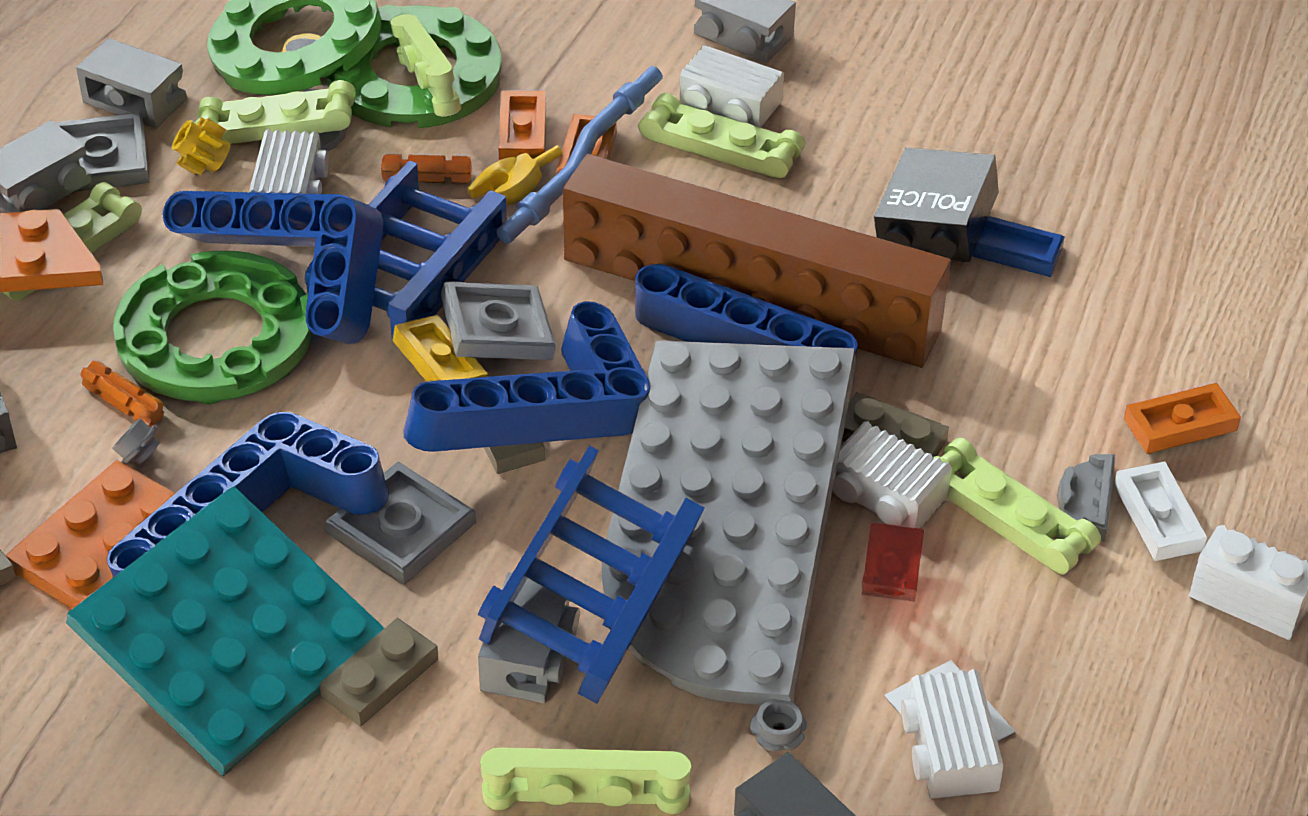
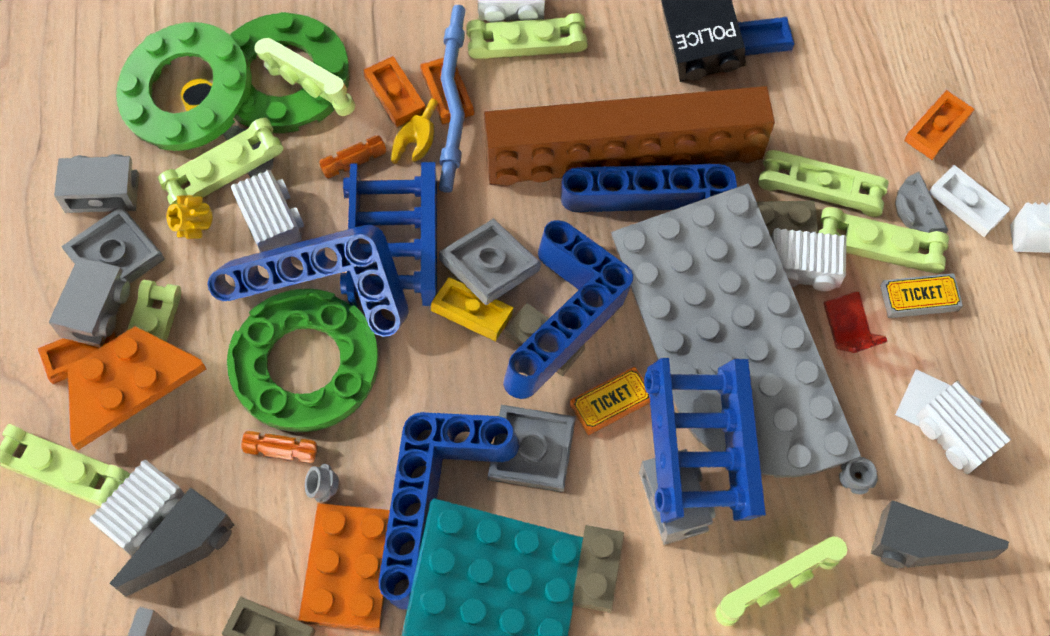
camera: 30 degrees left, 20 degrees up
(518, 515) = (610, 401): none -> tile
(979, 415) = (824, 182): none -> yellowish green plate
(1016, 584) = (921, 295): none -> tile

